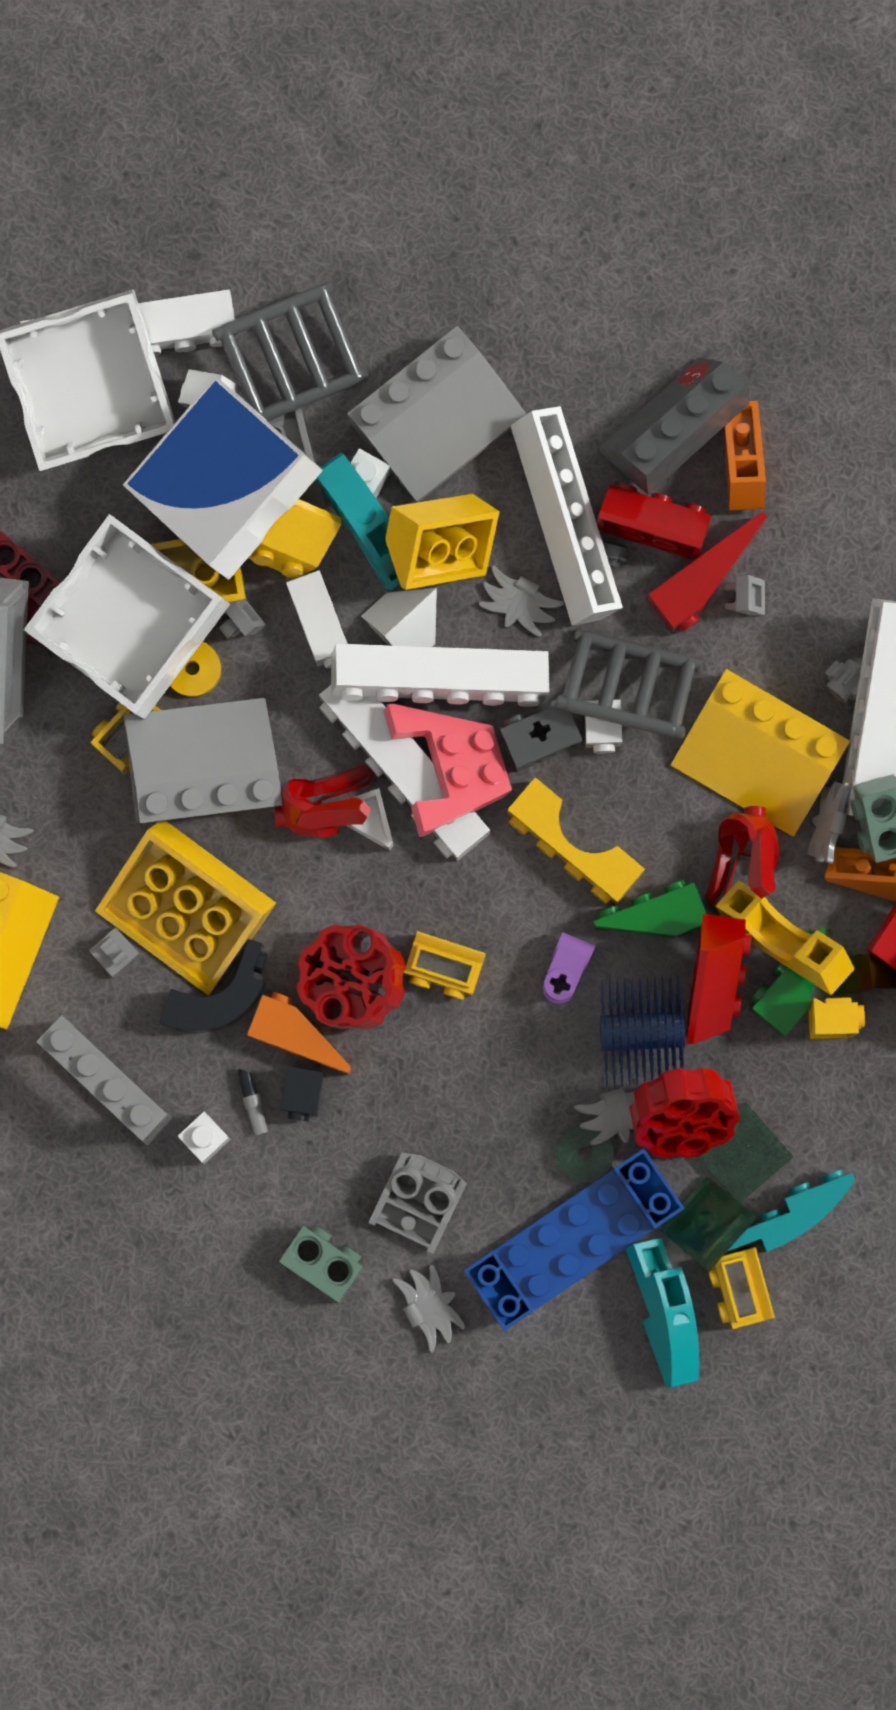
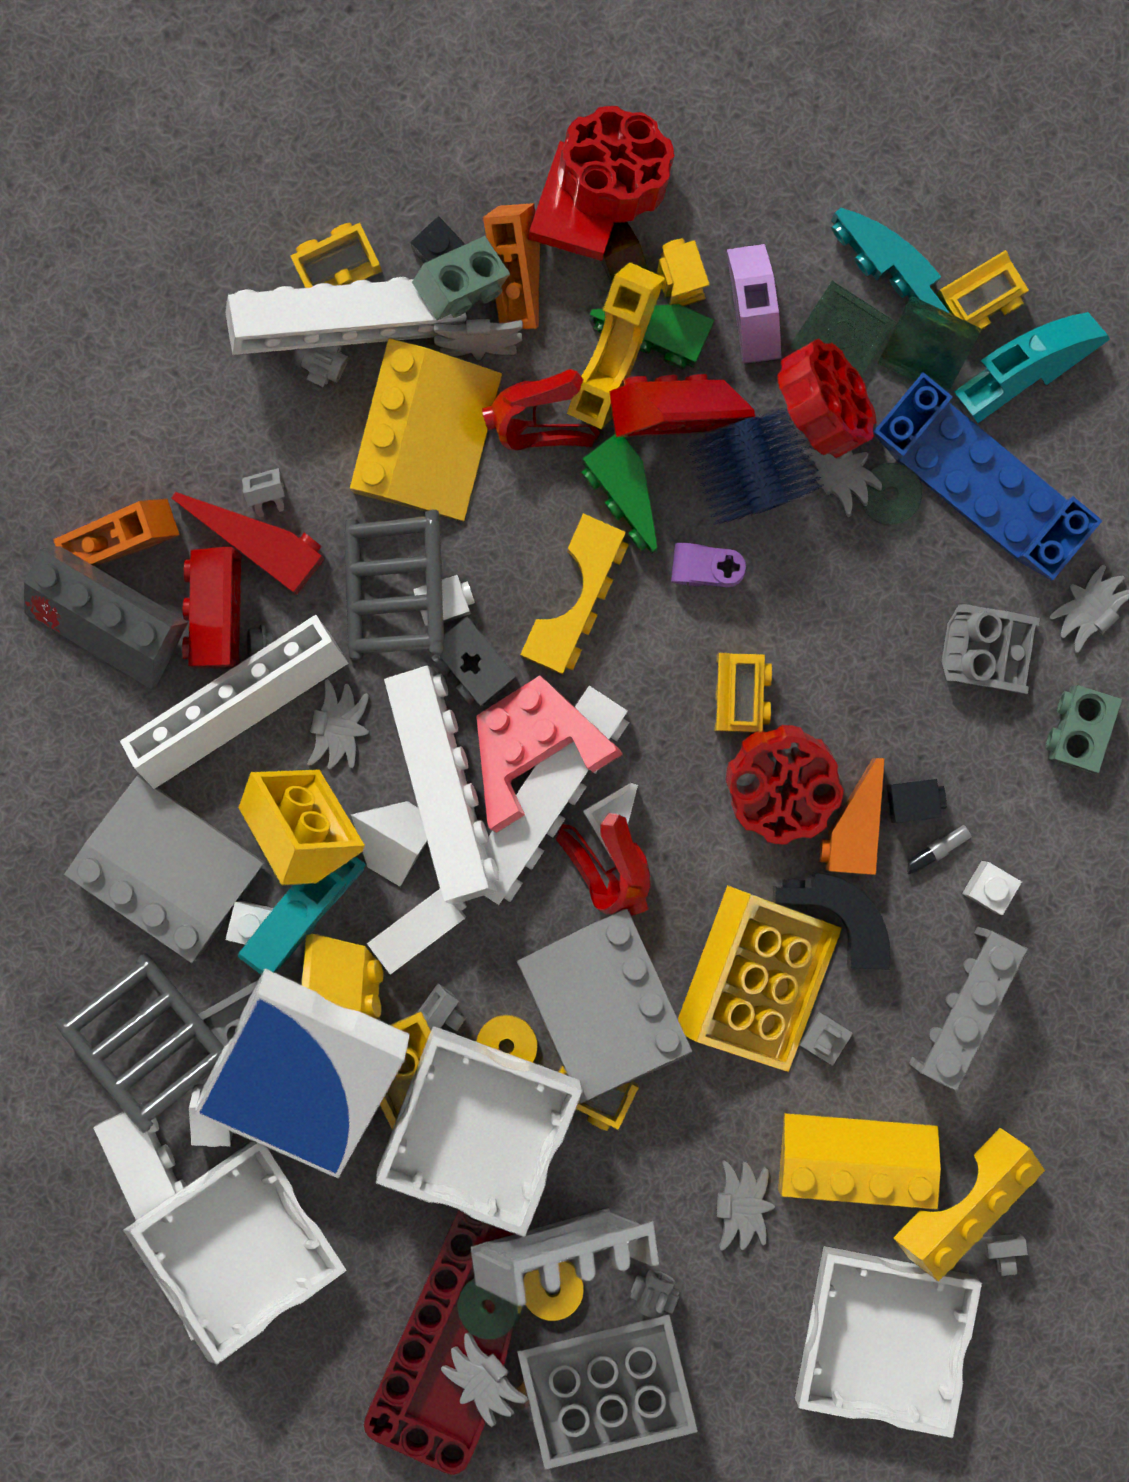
camera: 110 degrees left, 5 degrees up
(792, 1079) = (755, 303): none -> lavender slope

